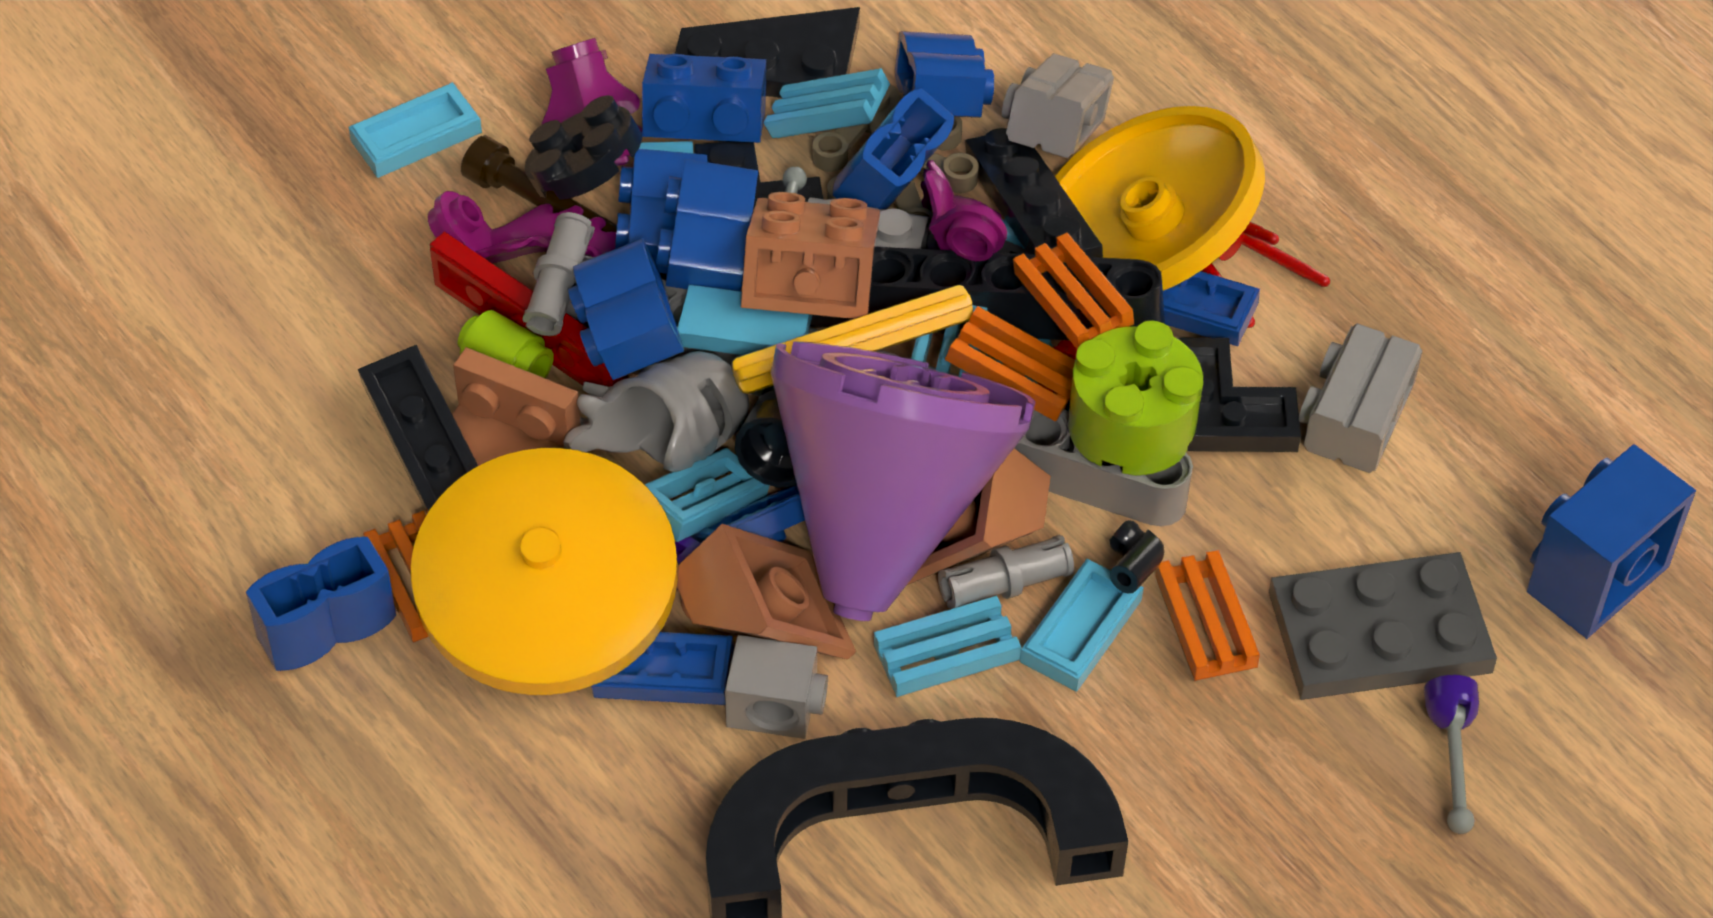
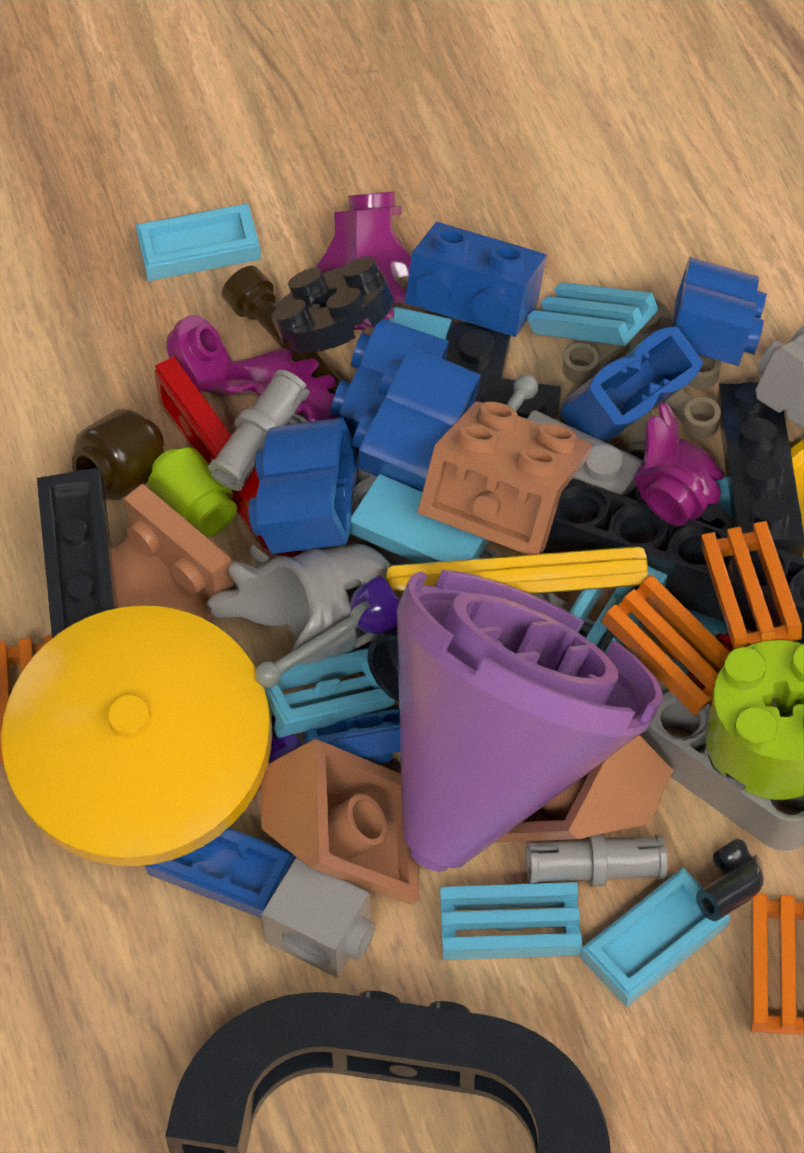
camera: 20 degrees right, 5 degrees up
(424, 321) = (123, 449): none -> dark brown head
(733, 399) = (371, 610): none -> hinge
(794, 45) = (578, 244): black wing -> none

